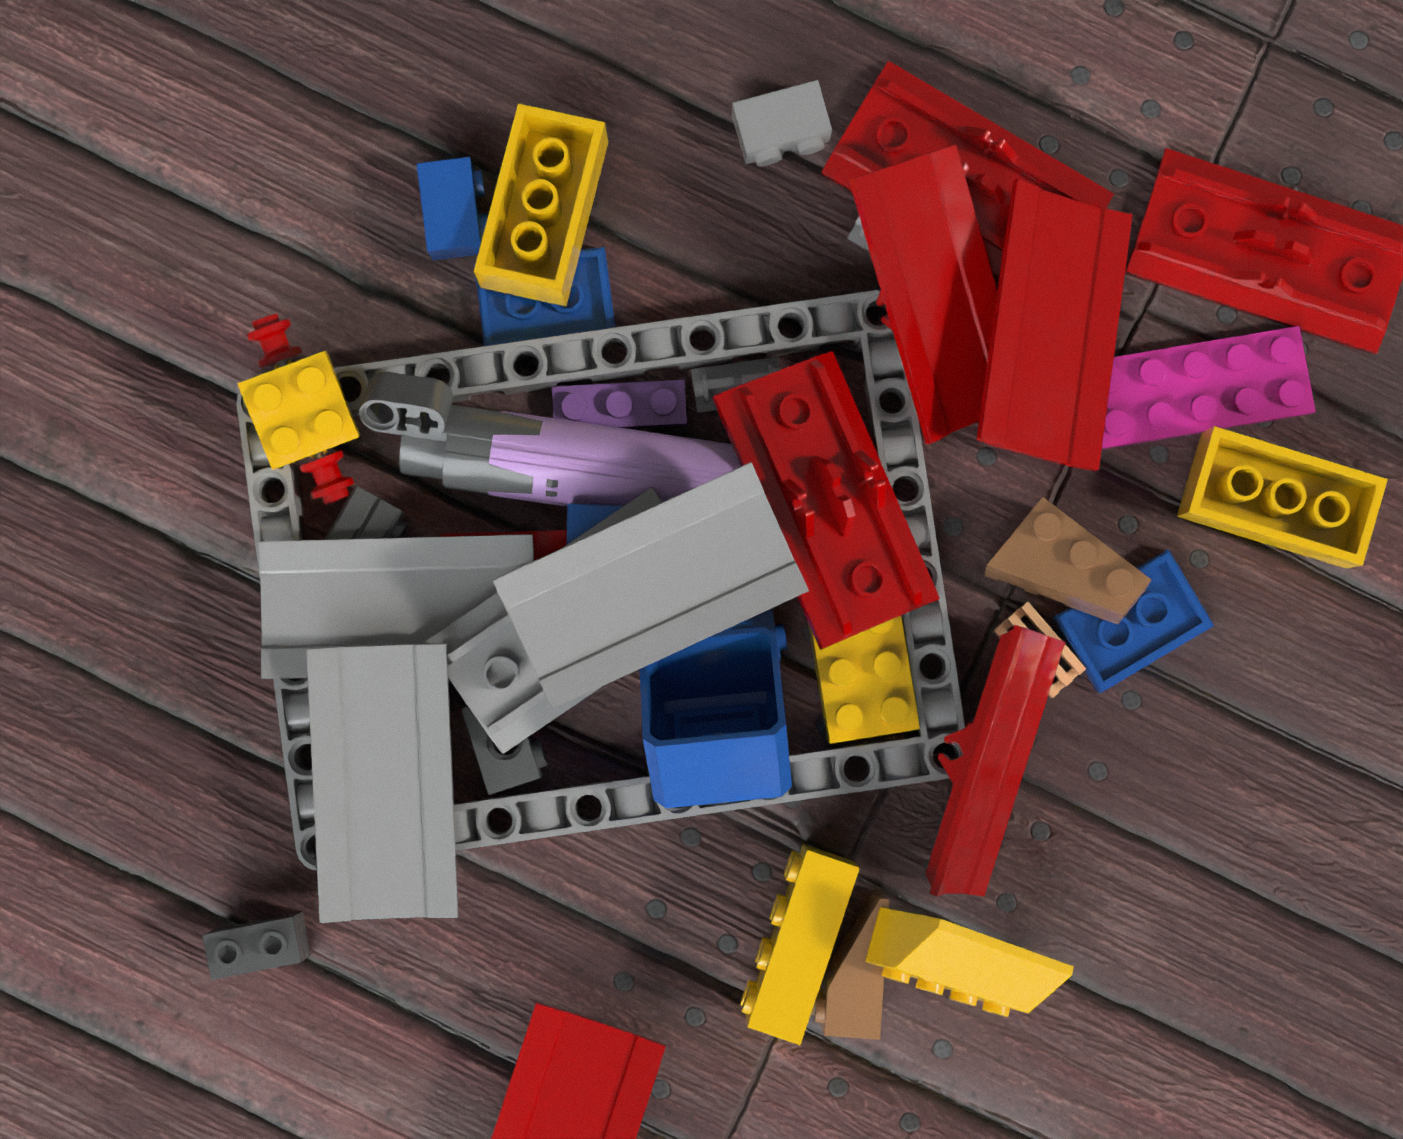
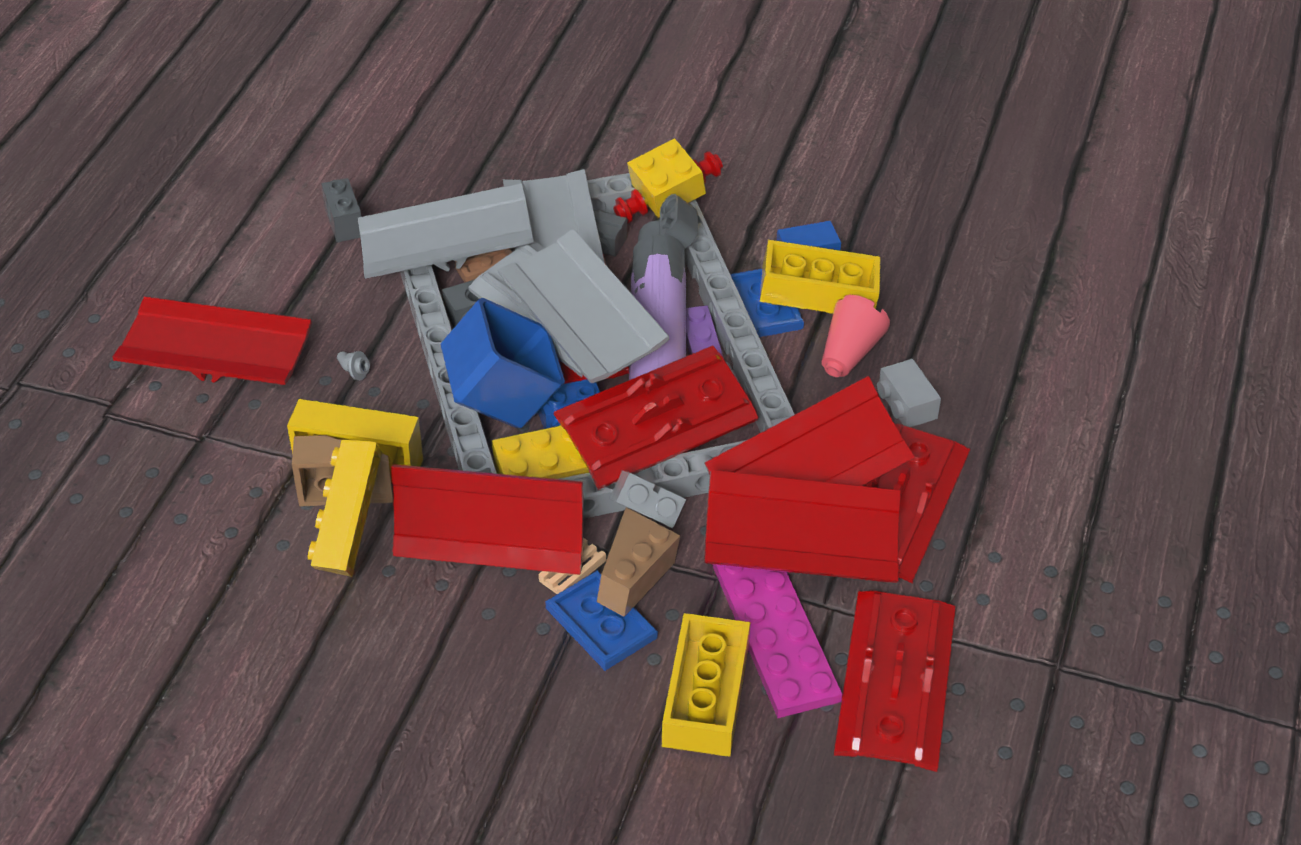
camera: 85 degrees right, 40 degrees down
(618, 933) = (354, 363): none -> light grey plate
(667, 184) = (852, 334): none -> coral cone
(971, 548) = (647, 499): none -> light grey piece

